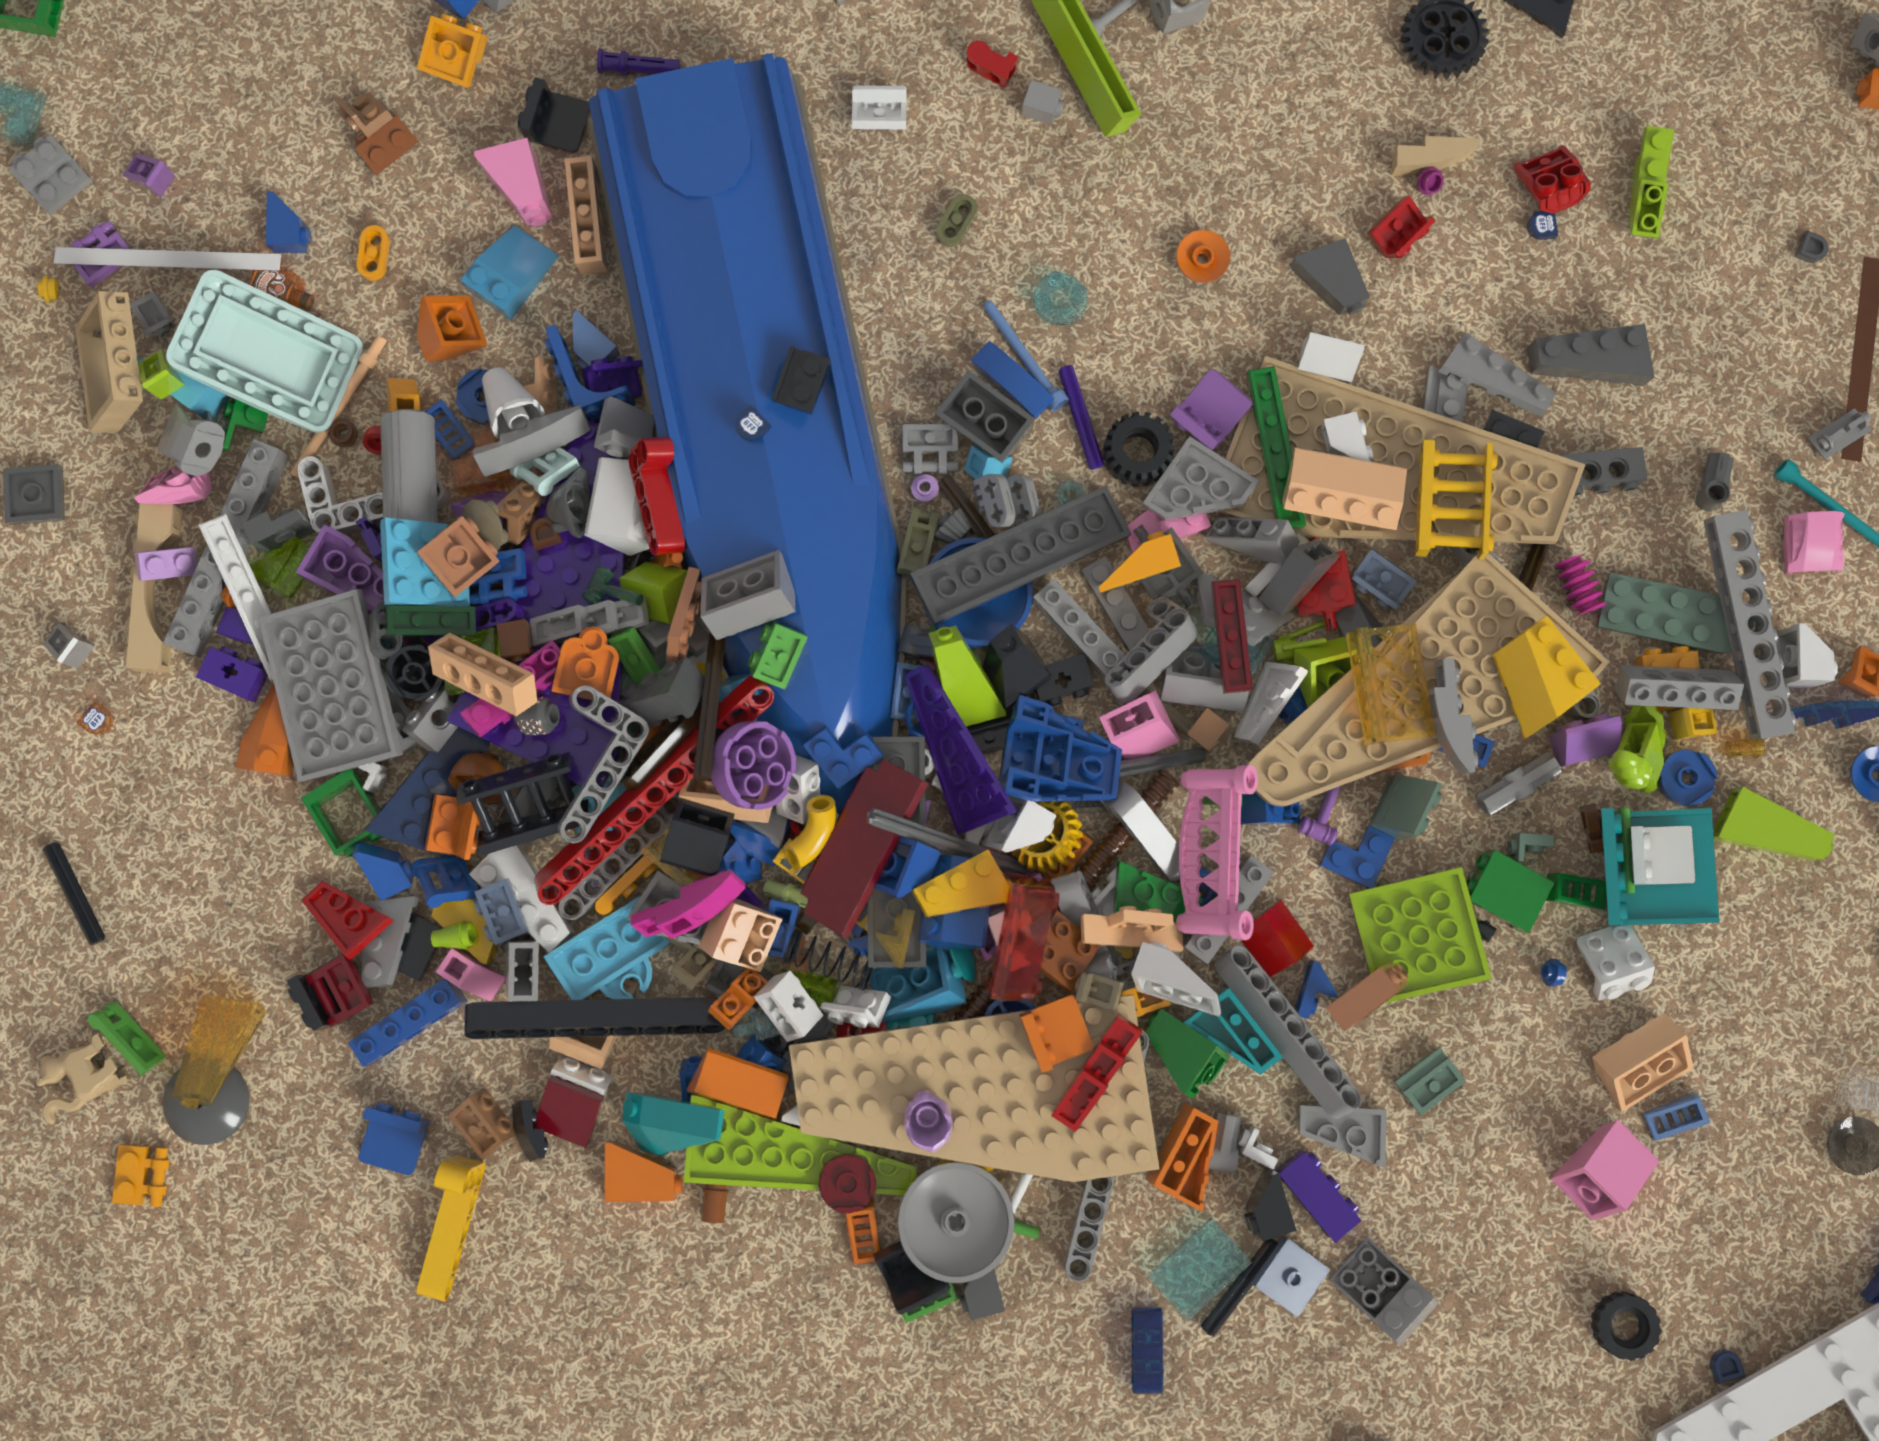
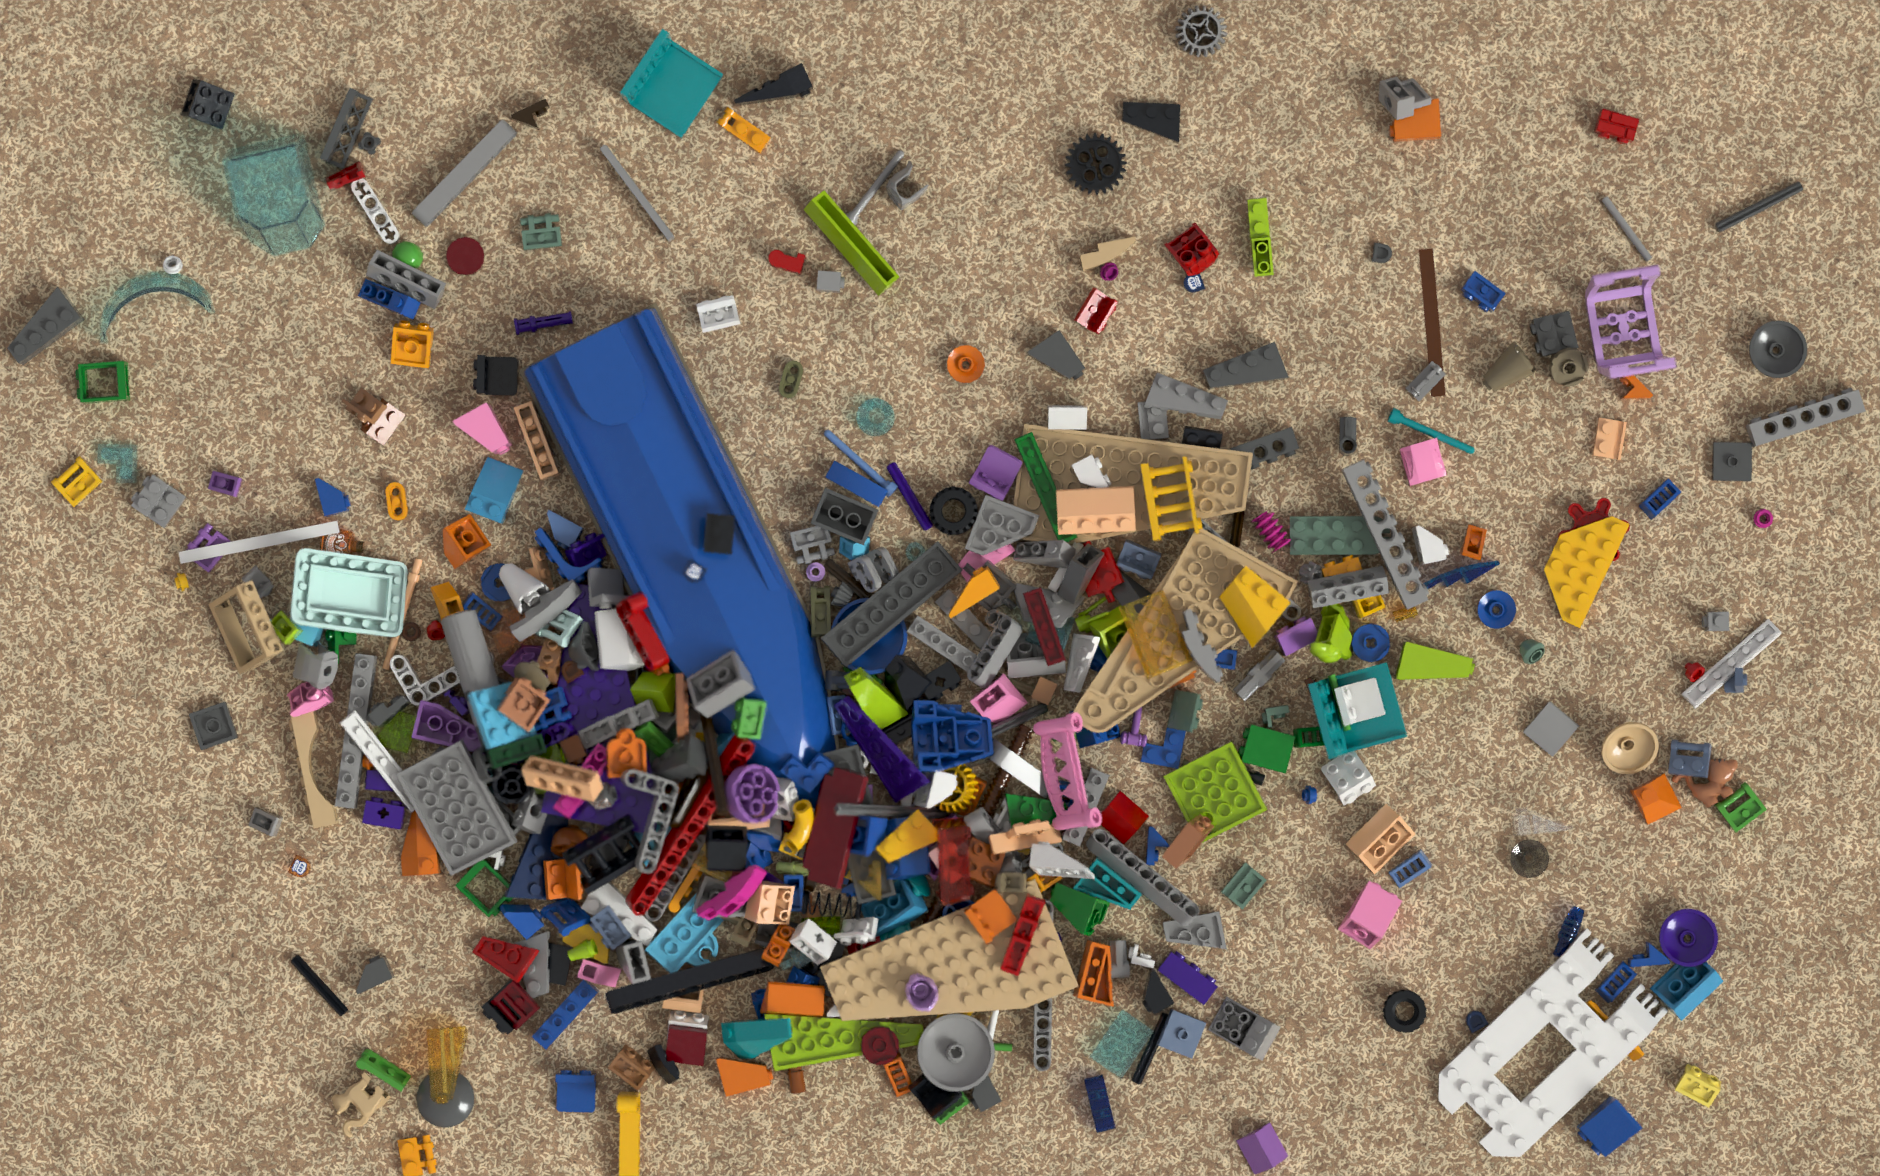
camera: 15 degrees left, 5 degrees up
(154, 896) = (375, 973): none -> dark grey slope
(166, 563) = (319, 751): lavender plate -> none
(601, 585) = (618, 699): clear green piece -> none
(1623, 655) = (1310, 572): none -> light grey gear

